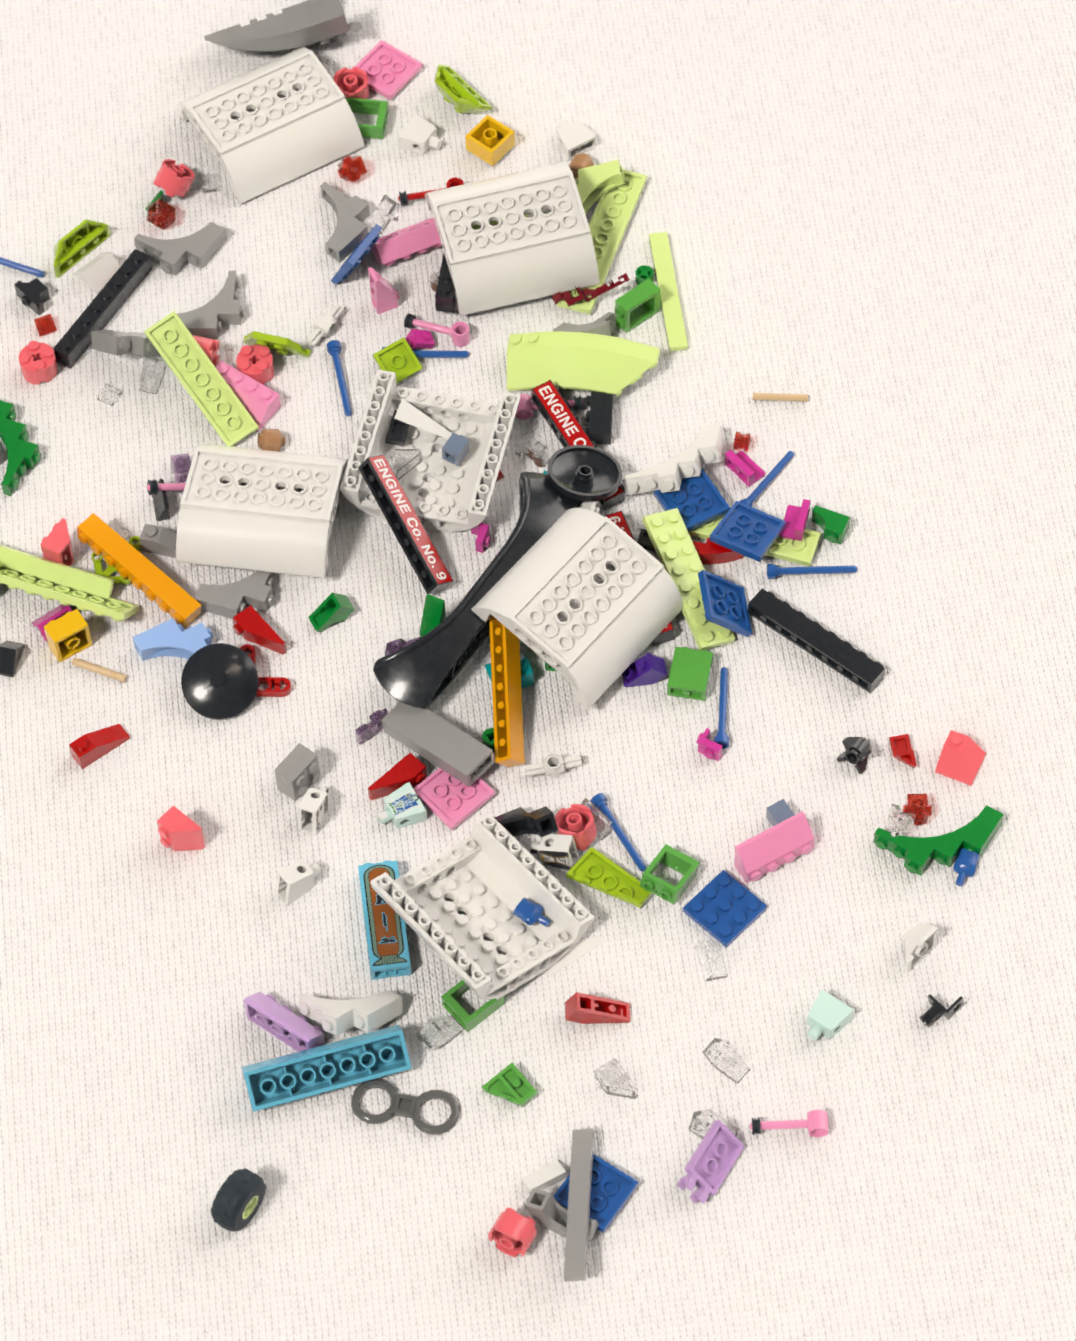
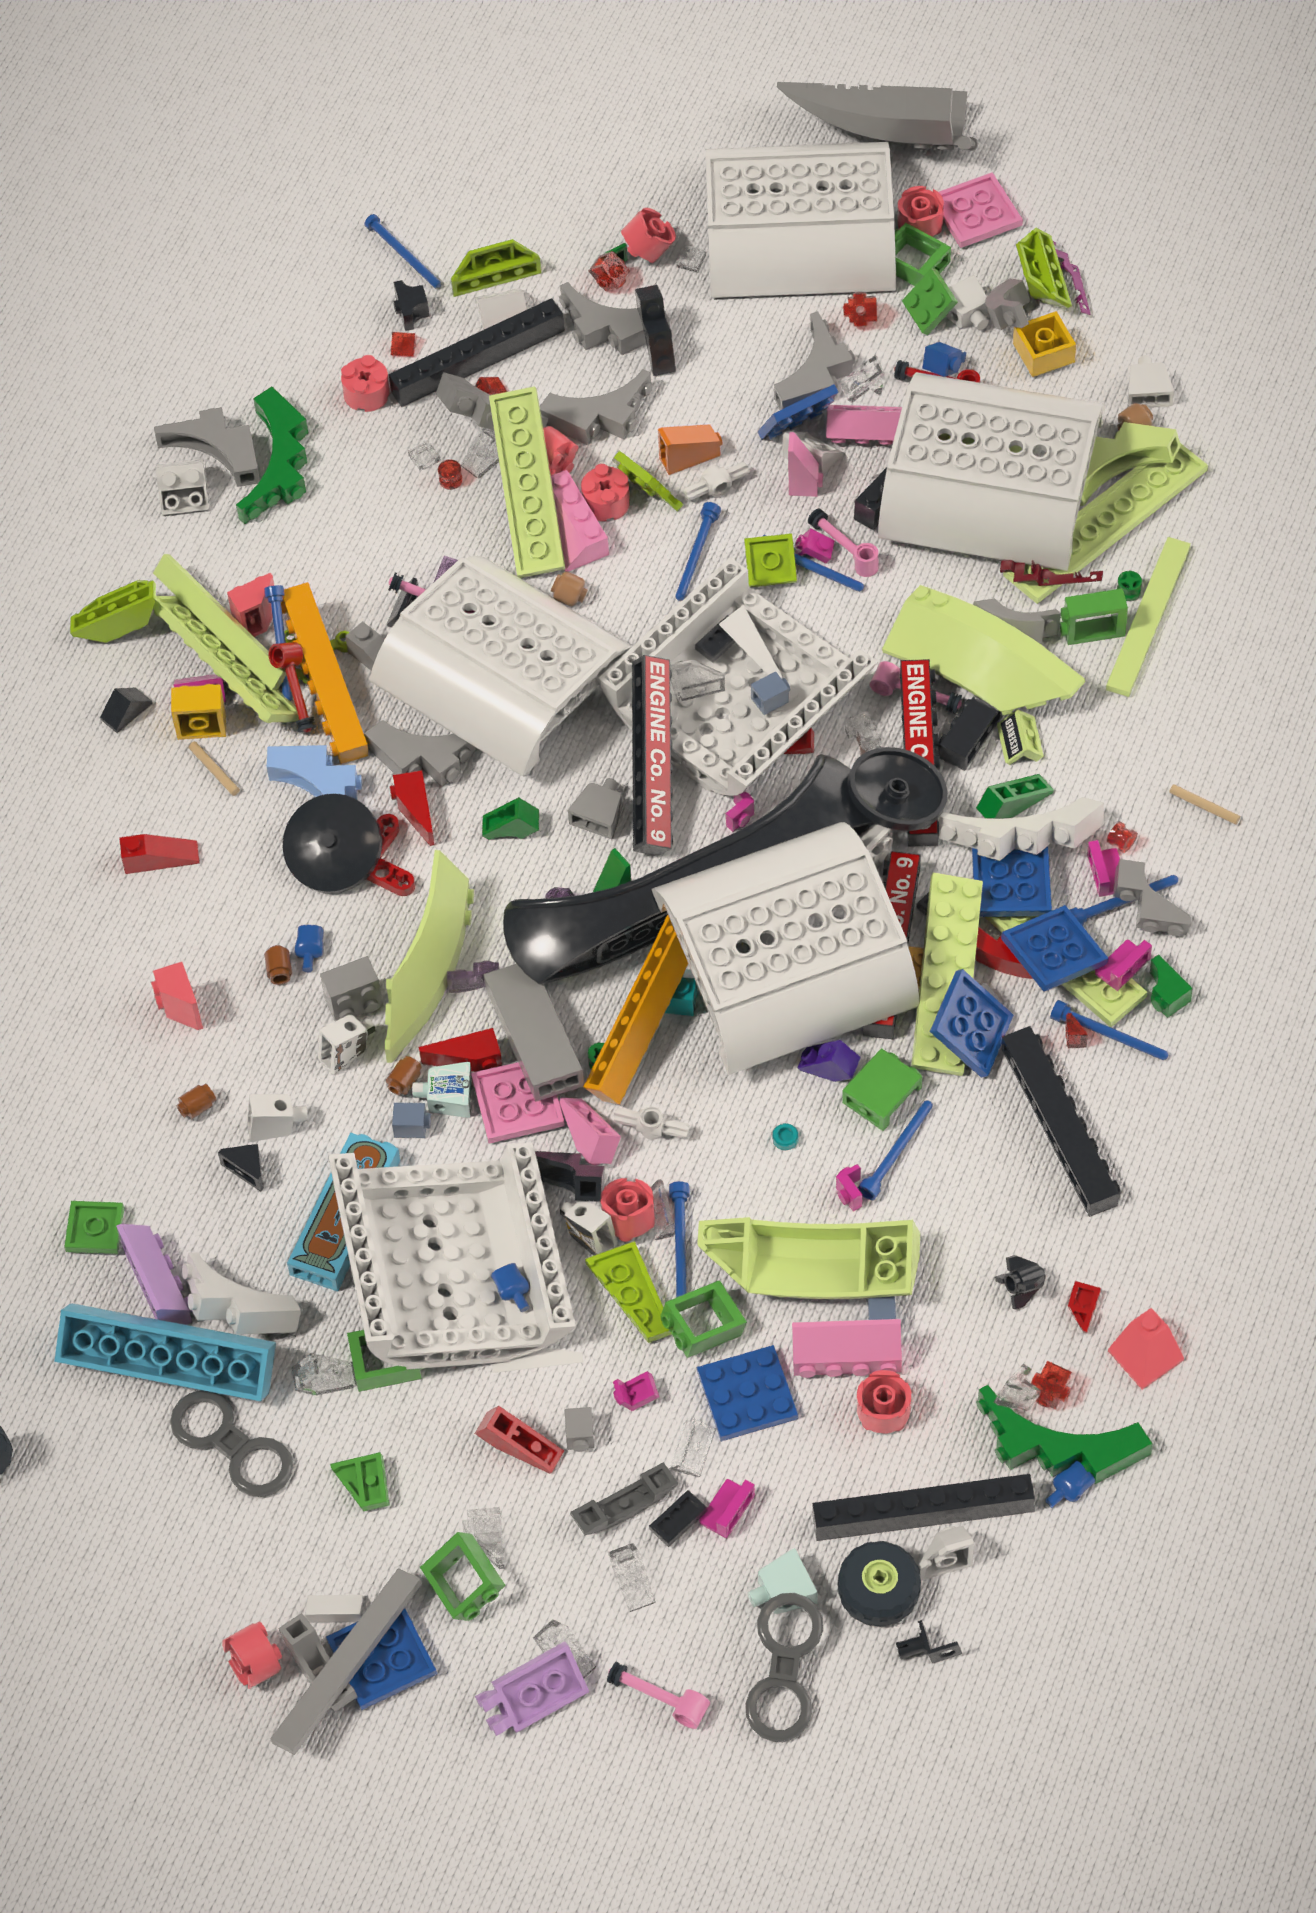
camera: 30 degrees right, 0 degrees up
(77, 533) = (274, 595): none -> blue piece
(115, 567) = (287, 657): none -> red piece
(127, 326) = (490, 385): none -> clear red slope
(134, 403) = (450, 474): none -> clear red wheel
(218, 1012) = (93, 1227): none -> bright green plate
(223, 240) = (656, 329): none -> black arch
(232, 779) = (278, 964): none -> dark orange brick
(235, 895) = (196, 1101): none -> dark orange brick
(244, 757) = (309, 945): none -> blue piece
(291, 310) = (687, 446): none -> orange slope
(296, 921) = (244, 1163): none -> black slope
(336, 707) = (434, 951): none -> yellowish green slope
(363, 277) = (823, 452): none -> white slope
(367, 812) = (403, 1075): none -> dark orange brick
(385, 577) = (597, 808): none -> light grey torso
(390, 839) = (410, 1120): none -> sand blue brick
(395, 143) = (929, 301): none -> bright green plate
(428, 179) = (943, 359): none -> blue brick
(449, 124) = (1006, 304): none -> light grey arch
(484, 90) = (1066, 265): none -> magenta piece
(517, 790) = (590, 1133): none -> bright pink slope
(601, 1105) = (445, 1558): none -> bright green window
(632, 983) = (579, 1428): none -> light grey brick
(634, 407) = (1019, 737): none -> yellowish green panel
(645, 734) = (785, 1136): none -> teal tile
(654, 941) = (636, 1391): none -> dark pink bracket
(656, 447) = (1013, 797): none -> green slope
(692, 1014) = (626, 1502): none -> dark grey slope
(717, 800) = (815, 1258): none -> yellowish green slope
(732, 1009) = (678, 1518): none -> black plate
(758, 986) = (728, 1507): none -> dark pink panel
(790, 580) = (1075, 1034): none -> clear red slope
(791, 478) = (1153, 910): none -> light grey arch
(818, 870) = (883, 1402): none -> coral brick
(861, 1067) = (784, 1667): none -> dark grey bar
(884, 924) = (923, 1507): none -> black brick
(887, 985) = (879, 1583): none -> black wheel

